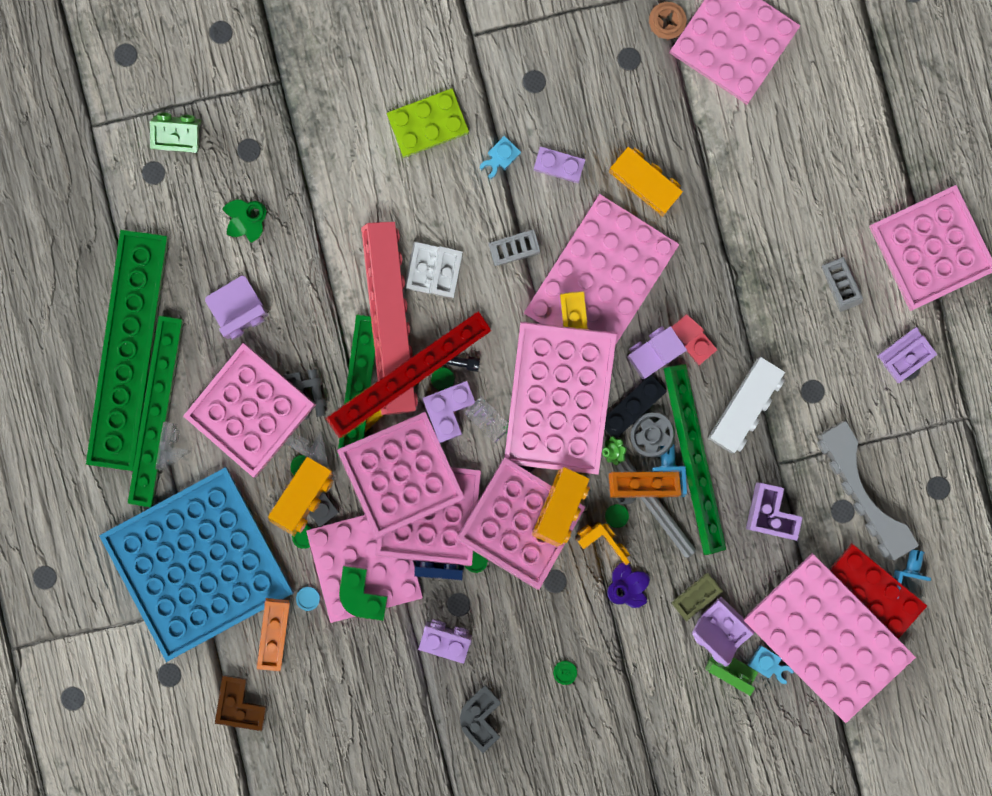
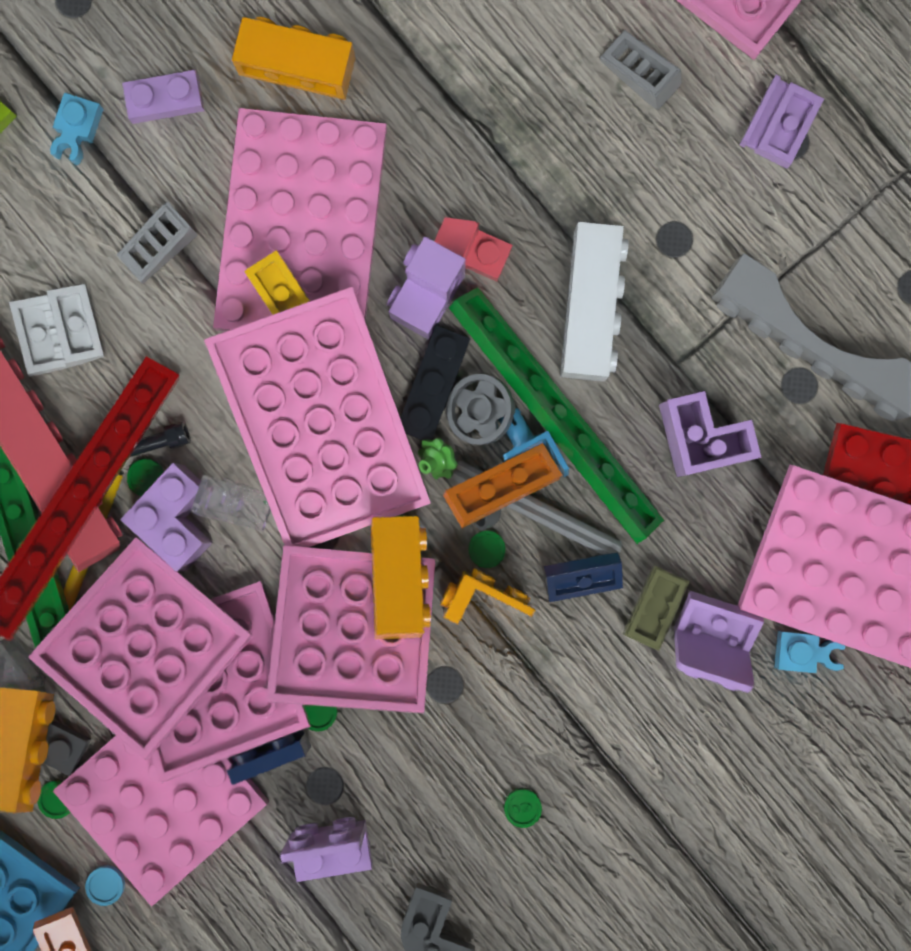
camera: 25 degrees left, 0 degrees up
(355, 600) = (165, 856): green plate -> none
(631, 584) = (556, 637): dark purple plate -> none
(664, 559) = (583, 577): none -> dark blue plate
(735, 674) = (771, 694): bright green bracket -> none

